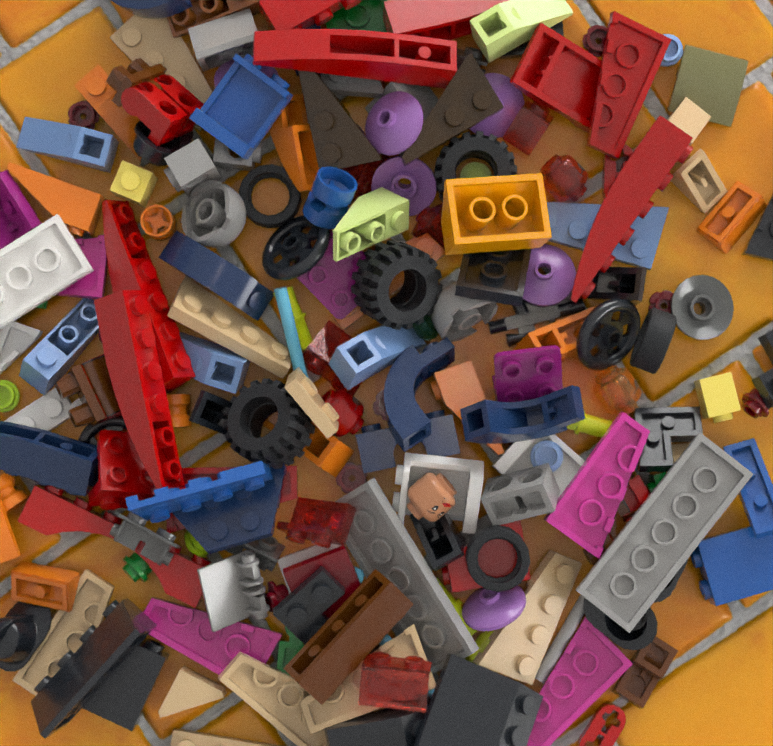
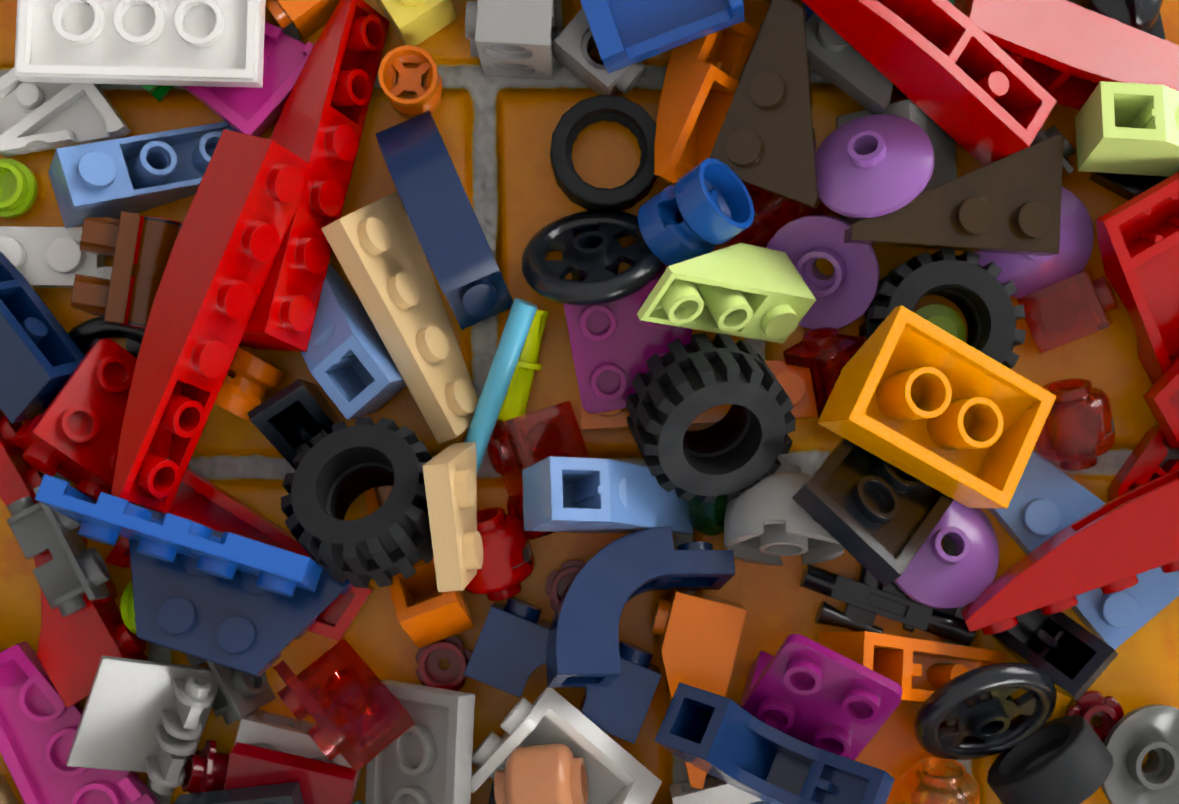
camera: 30 degrees right, 0 degrees up
(136, 568) = (21, 584): green plate -> none
(214, 214) = (502, 125): light grey cylinder -> none

